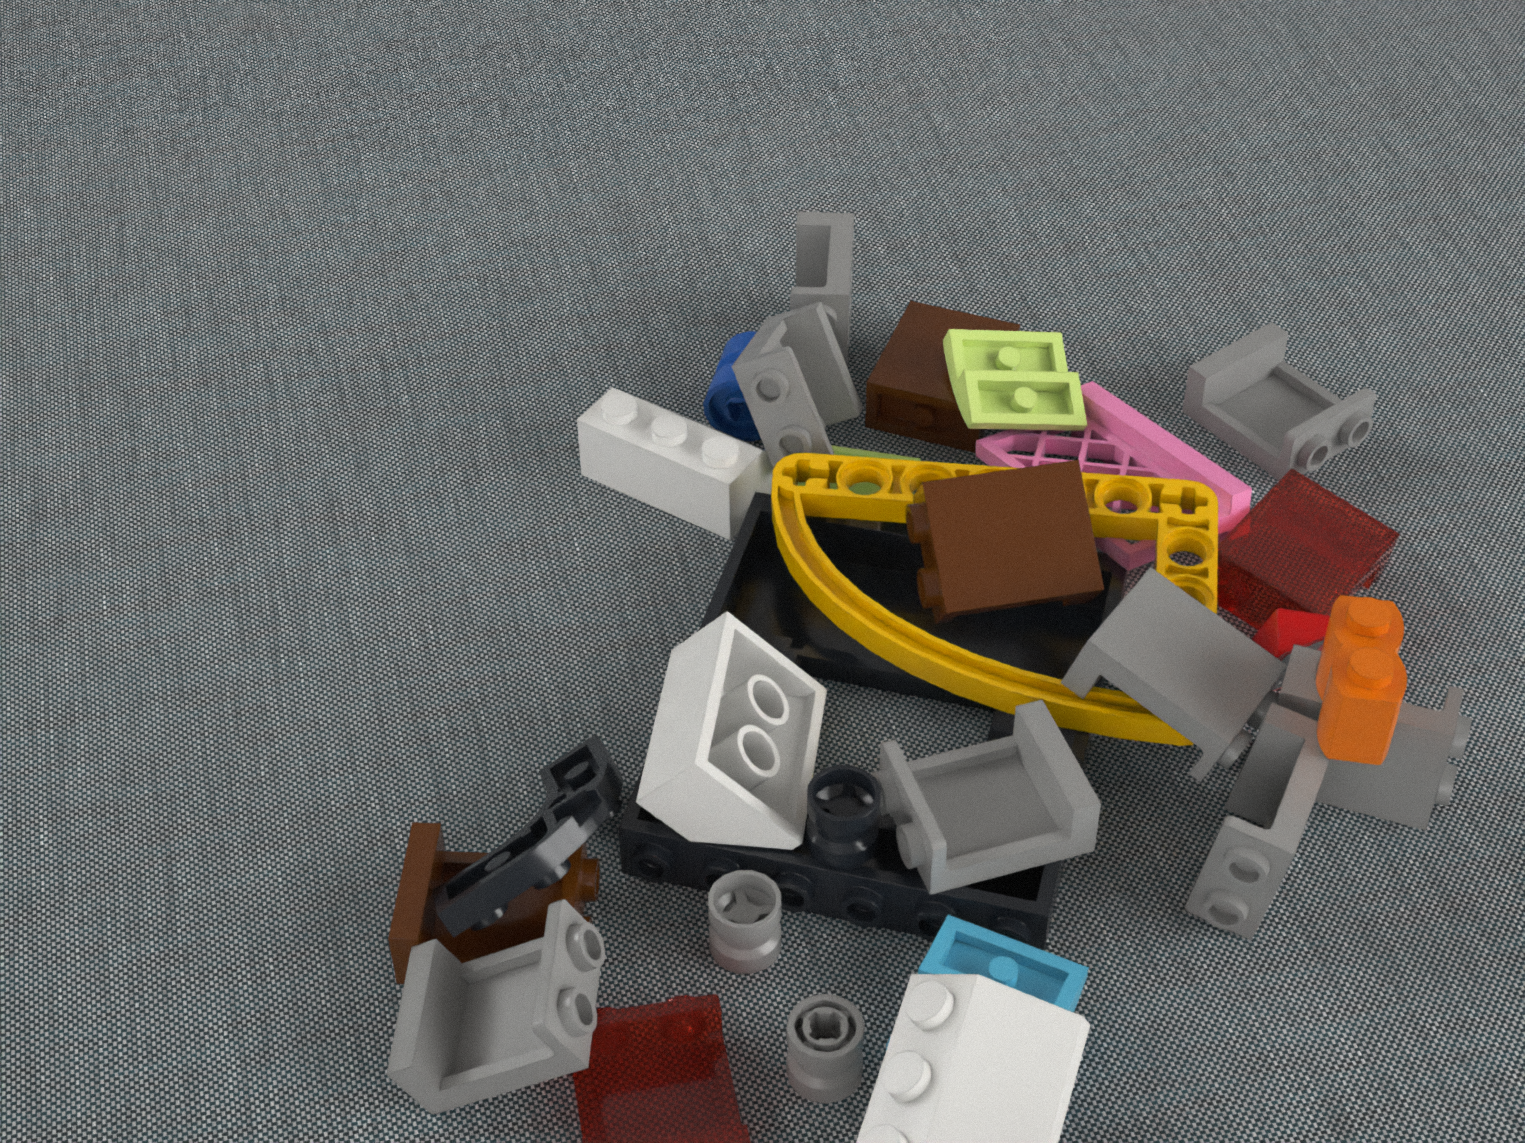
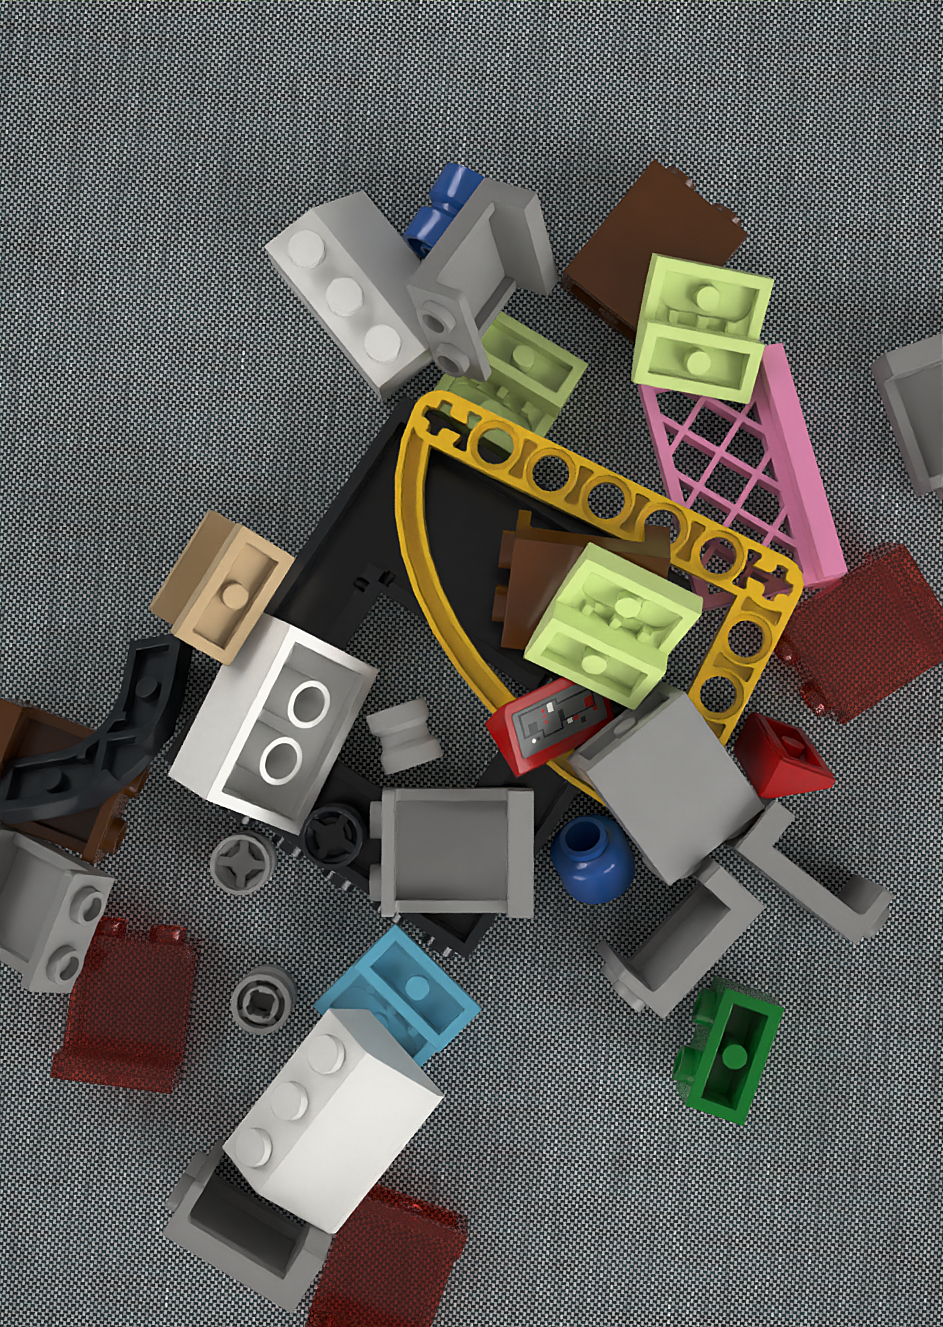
camera: 15 degrees right, 45 degrees up
(632, 661) = (220, 586): none -> tan panel
(826, 269) = (589, 77): light grey panel -> none
(875, 710) = (404, 736): none -> light grey wheel
(1022, 644) = (547, 723): none -> slope
(1051, 540) = (613, 626): none -> yellowish green slope
(1139, 803) = (593, 859): none -> blue head
(1360, 680) = (803, 879): orange brick -> none
(1388, 929) = (727, 1049): none -> green brick

